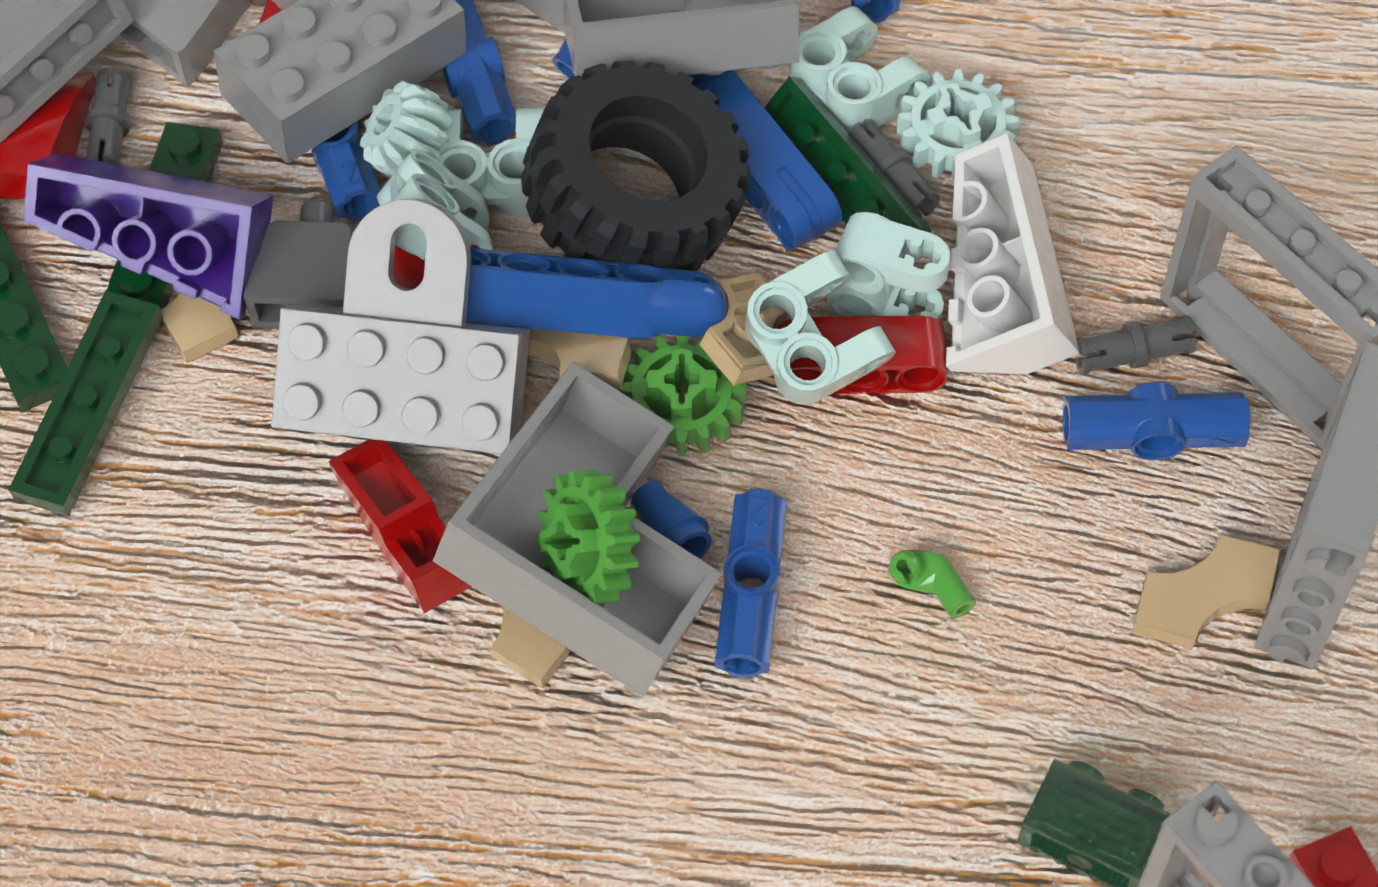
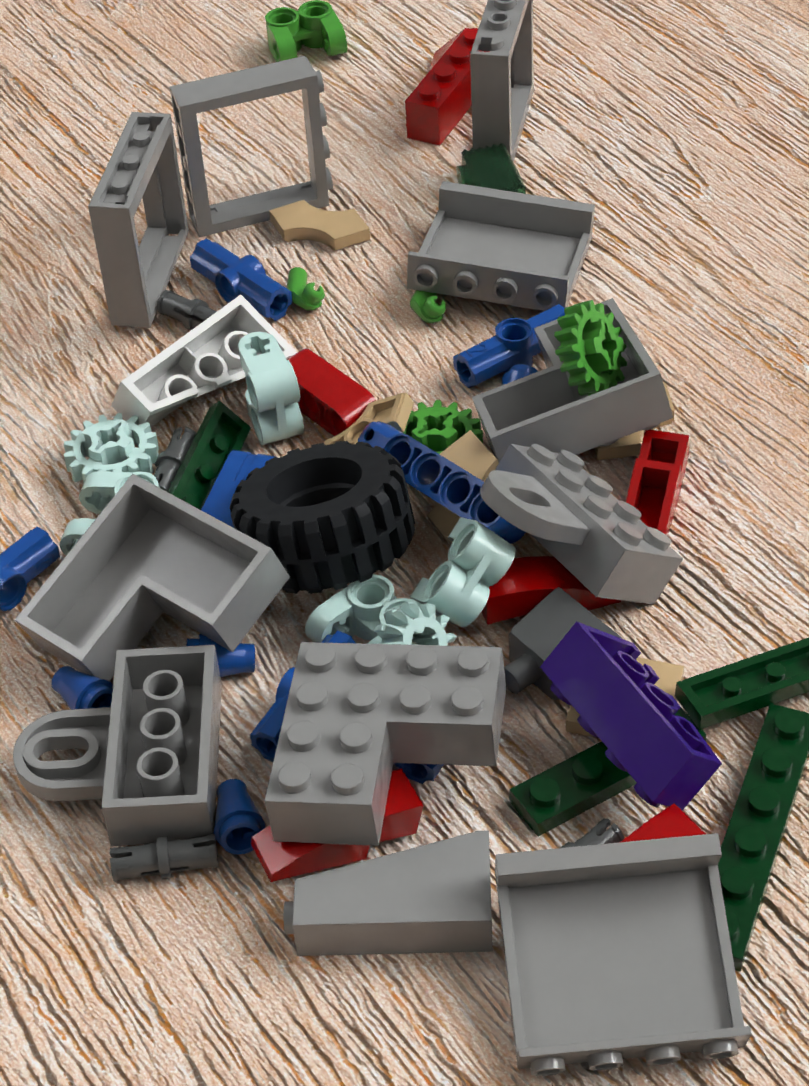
camera: 130 degrees left, 15 degrees down
(801, 338) = (355, 381): light aqua piece -> none
(928, 706) = (503, 247): none -> light grey panel
(1079, 471) = (302, 293): none -> bright green arm

